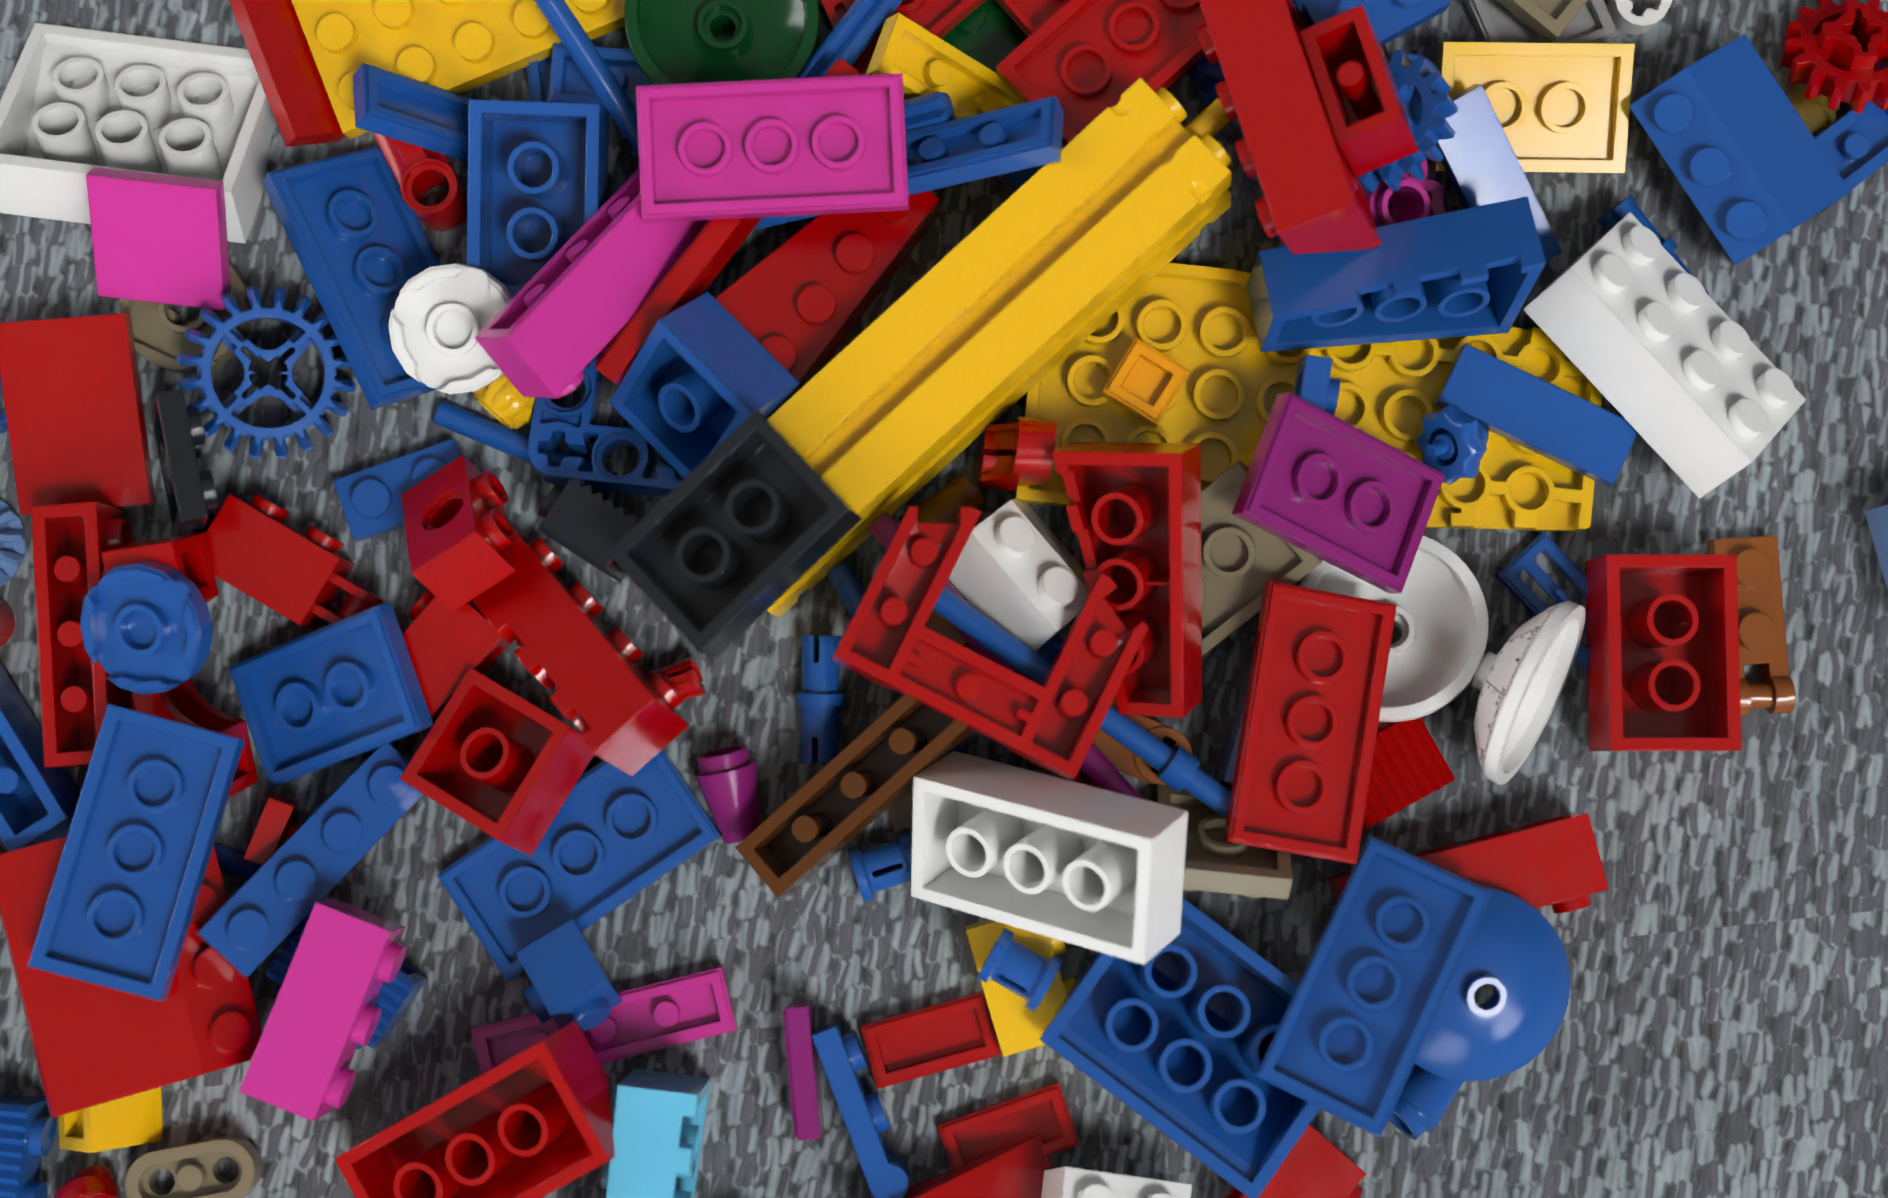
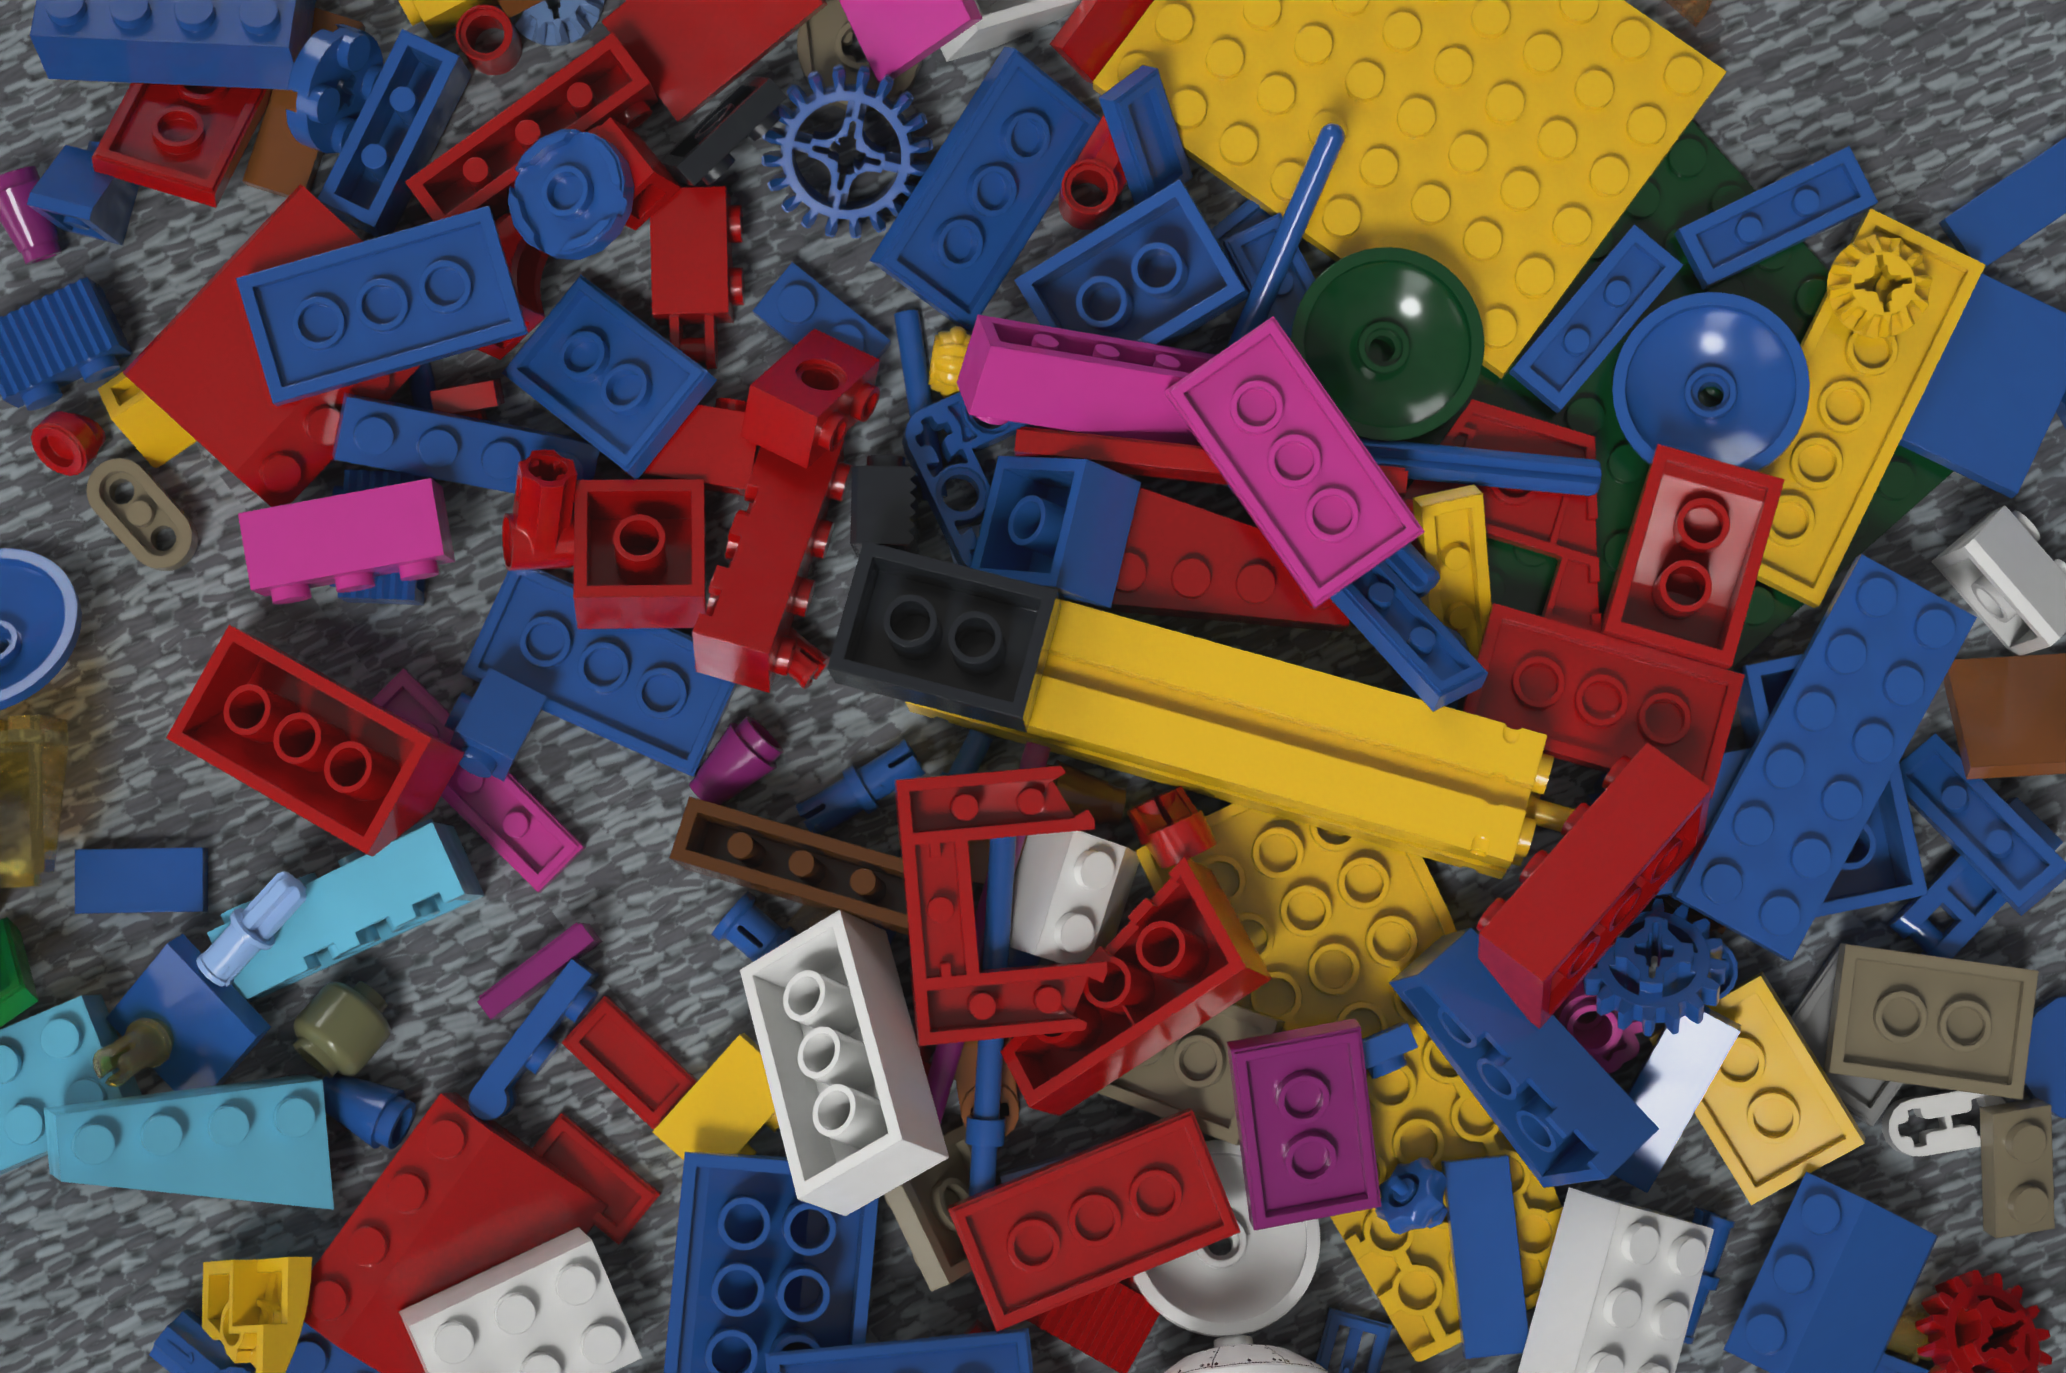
camera: 60 degrees right, 0 degrees up
(420, 831) = (542, 522): none -> red piece
(437, 325) = (978, 273): white tile -> none
(1019, 969) = (733, 1099): blue bush -> none
(1145, 382) = (1303, 899): light orange tile -> none
(1358, 91) = (1652, 928): red brick -> none

